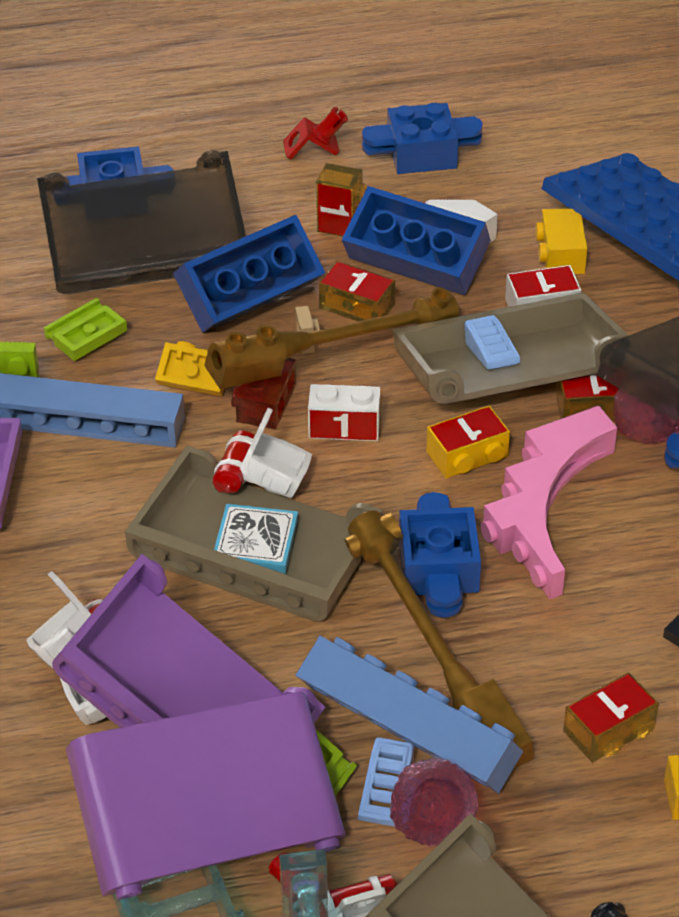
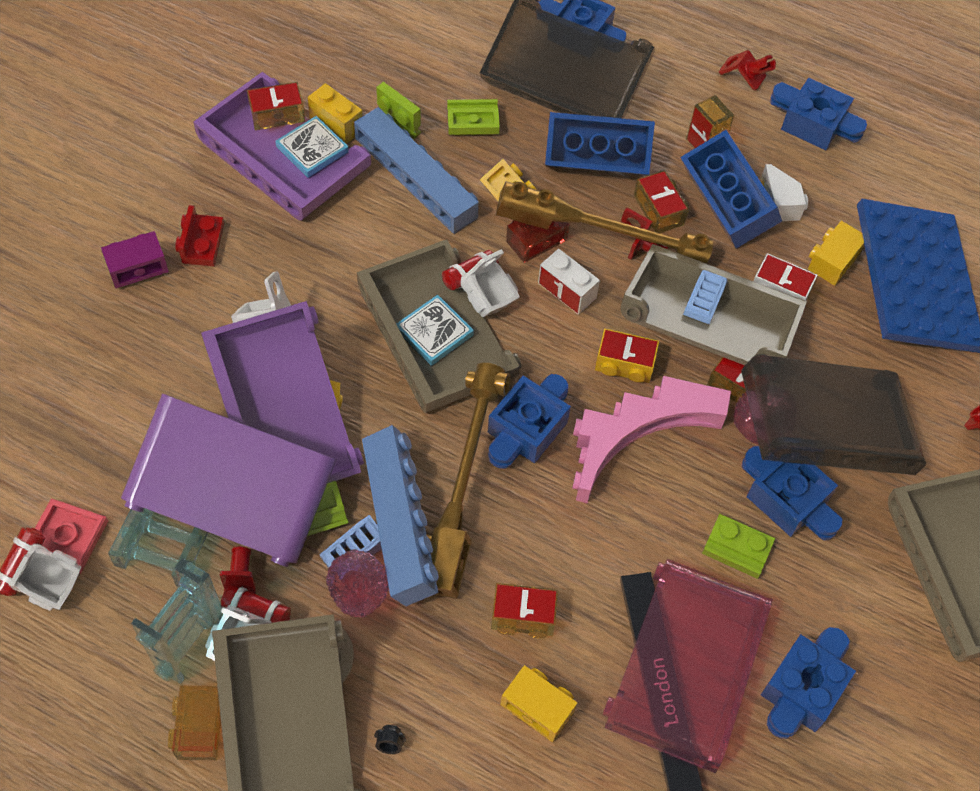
camera: 35 degrees right, 15 degrees up
(305, 323) = (604, 205): tan plate -> none
(375, 339) = (645, 223): none -> red bracket

